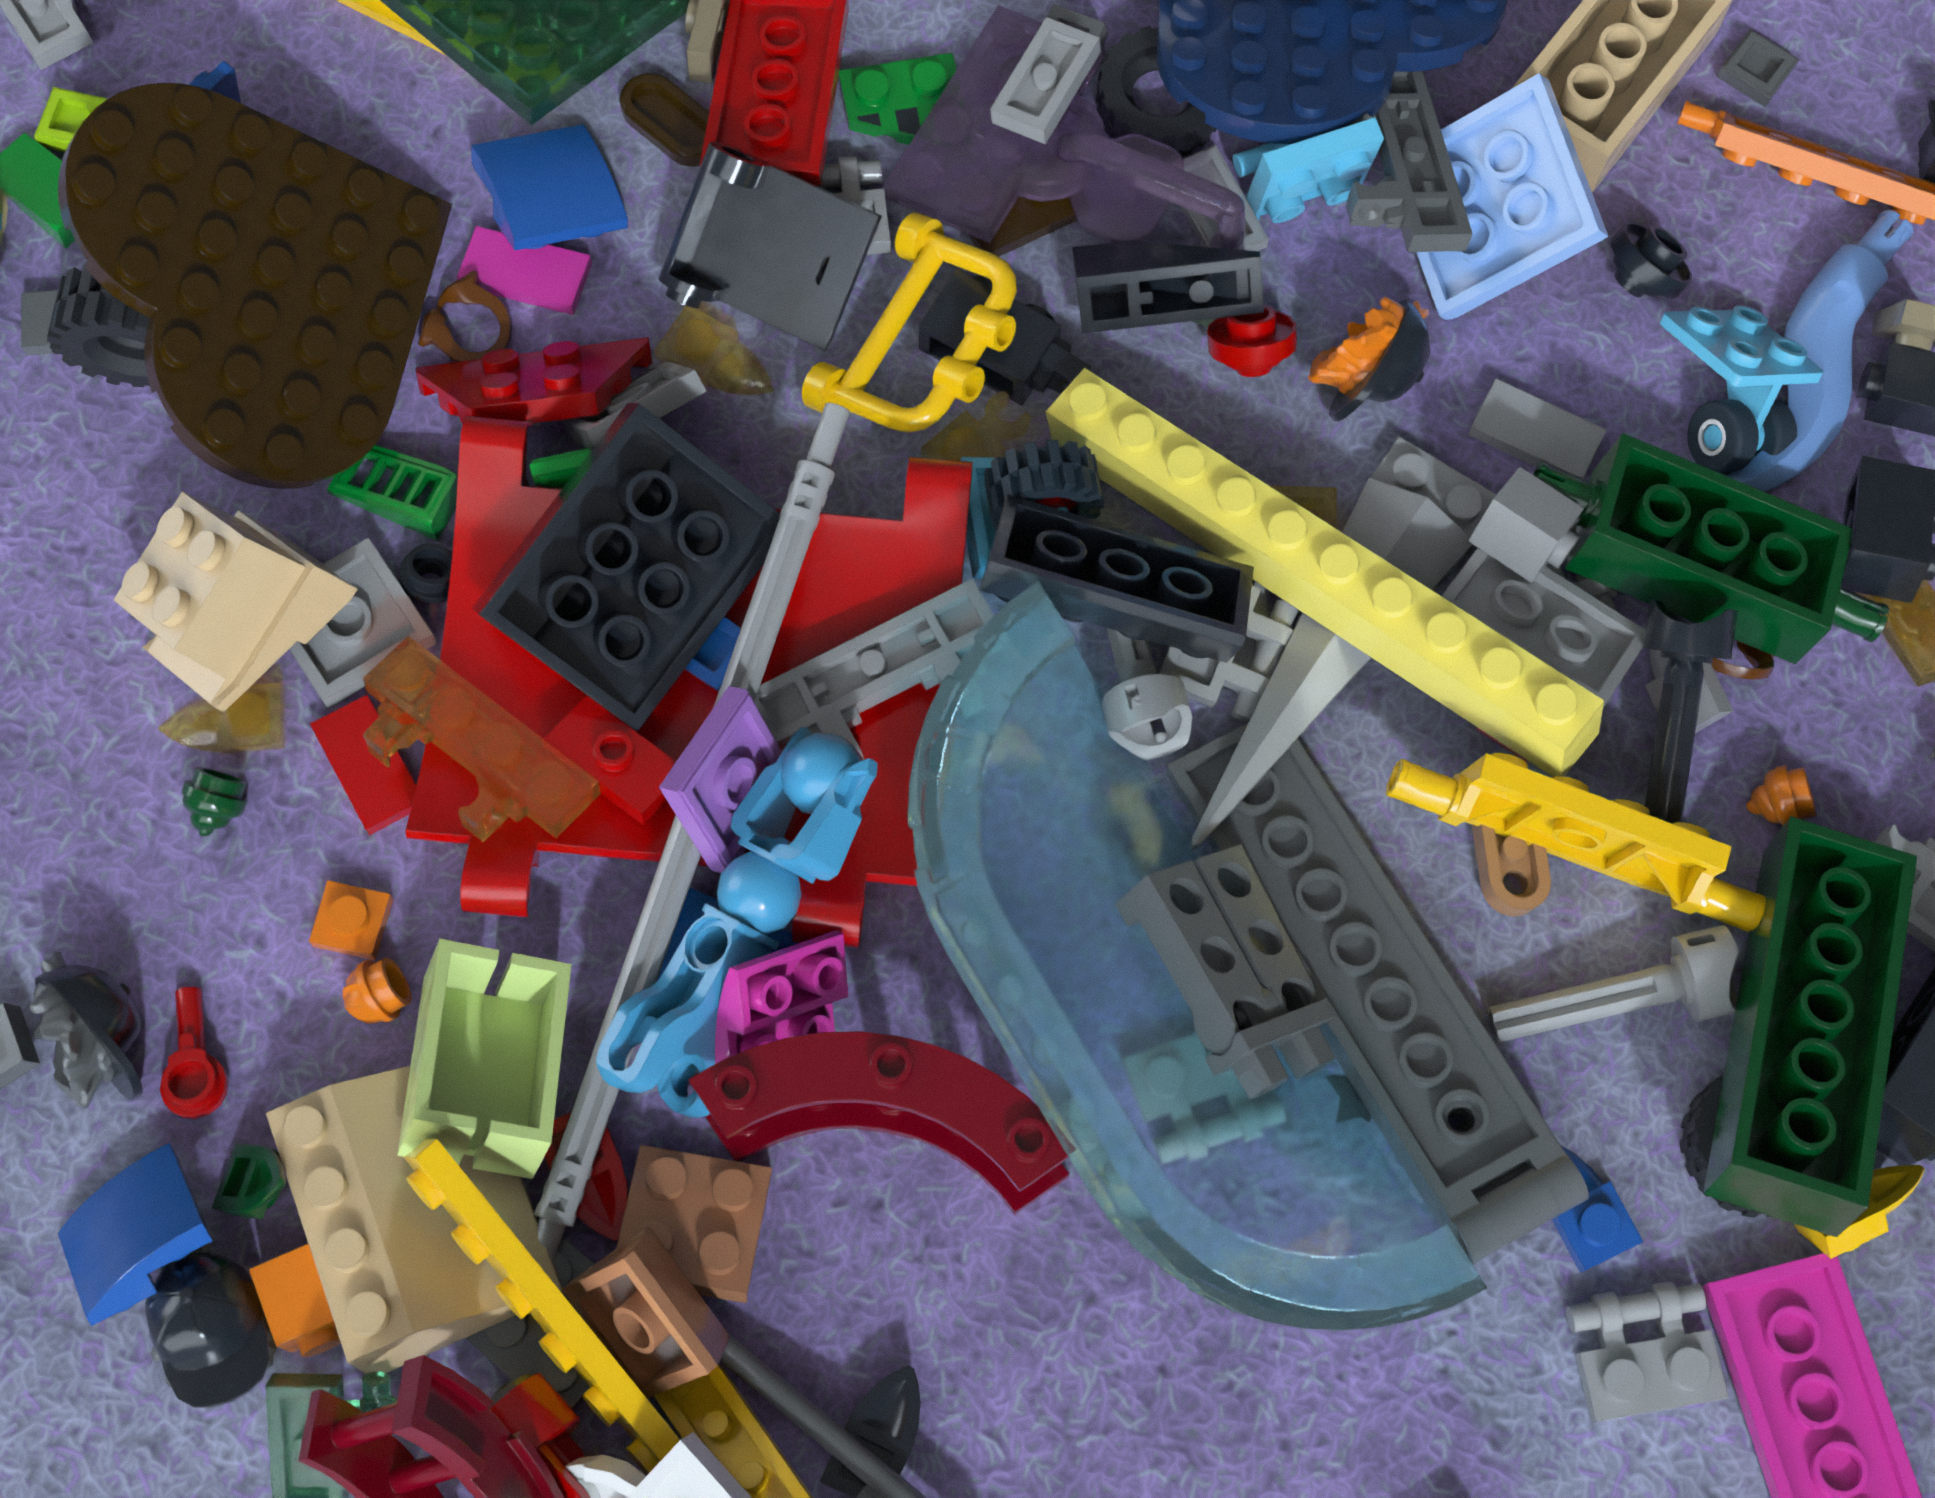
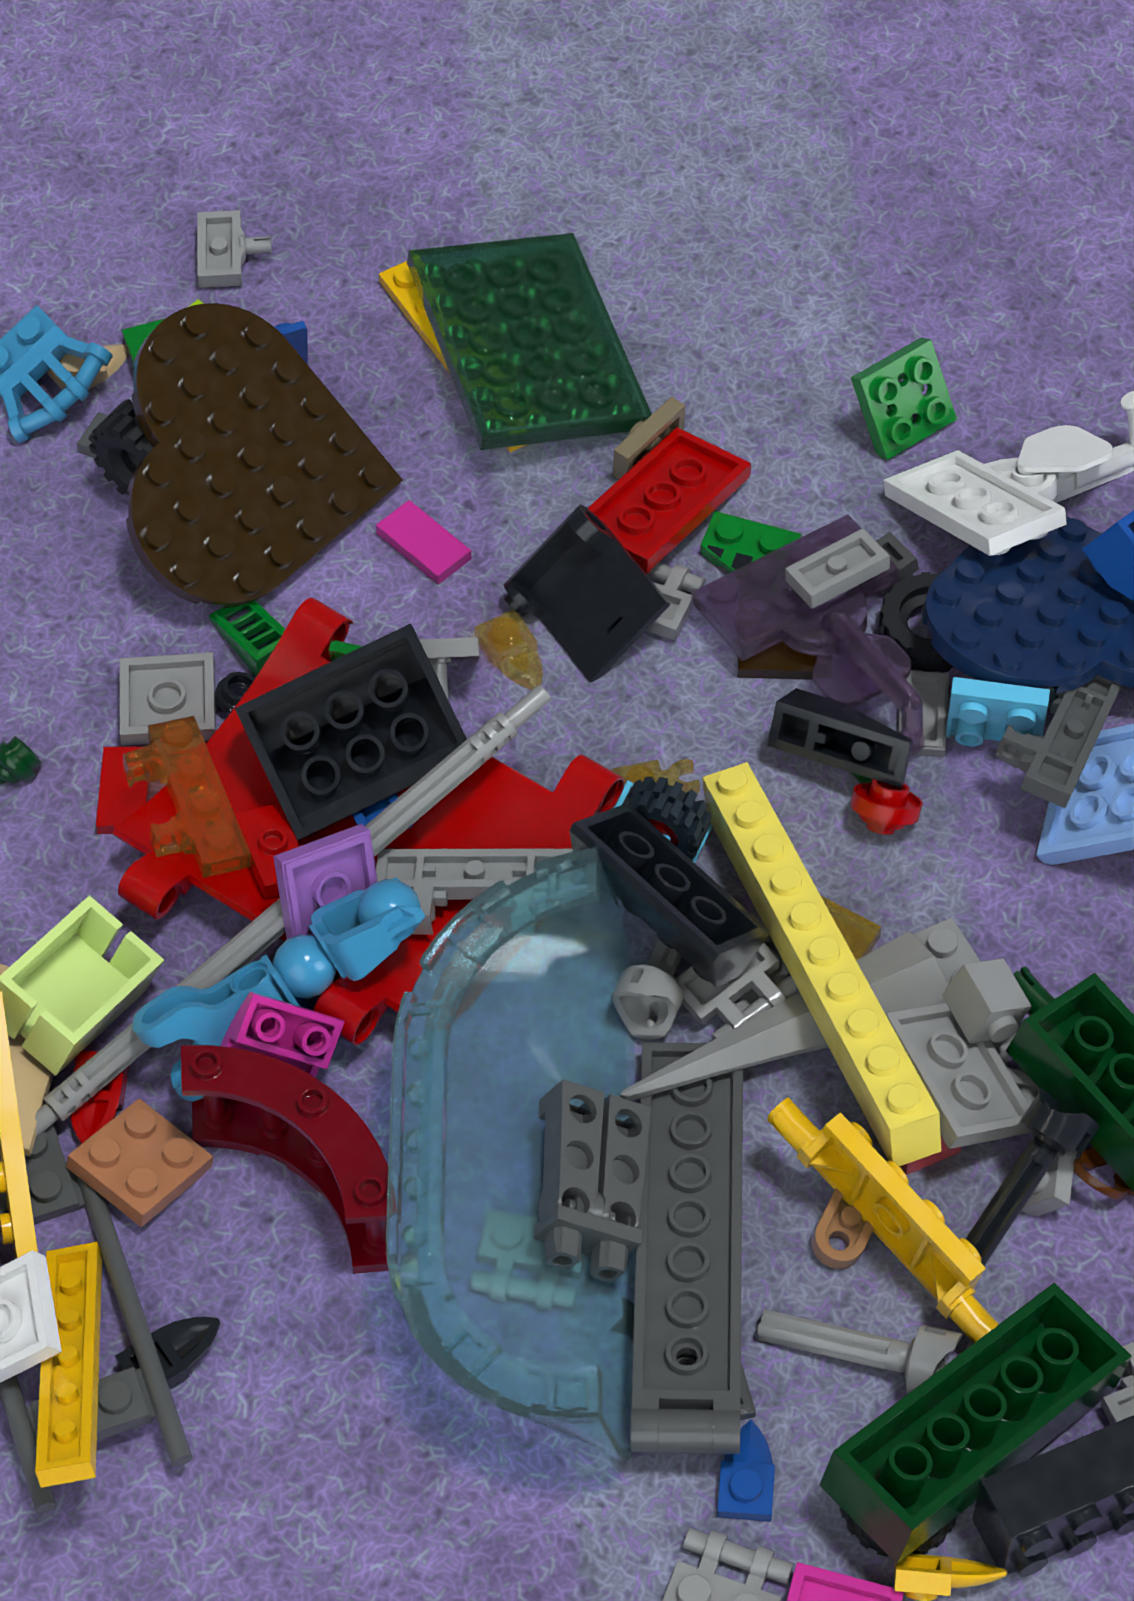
camera: 35 degrees right, 15 degrees down
(226, 597) = (98, 638): tan piece -> none
(249, 724) = (60, 725): clear yellow plate -> none
(351, 920) = (51, 876): orange plate -> none
(376, 991) = (35, 921): orange plate -> none
(467, 292) = (374, 535): reddish brown piece -> none
(537, 385) = (384, 610): red wing -> none
(549, 187) = (470, 496): blue slope -> none
(649, 1315) = (72, 1189): nougat slope -> none
(665, 117) = (577, 482): dark brown tile -> none
(956, 376) = (693, 640): yellow bar -> none
(1032, 360) = (706, 721): black hinge -> none
(1377, 359) = (966, 853): hair -> none
(1536, 430) = (1051, 956): light grey tile -> none
(1783, 795) = (1080, 1282): orange plate -> none

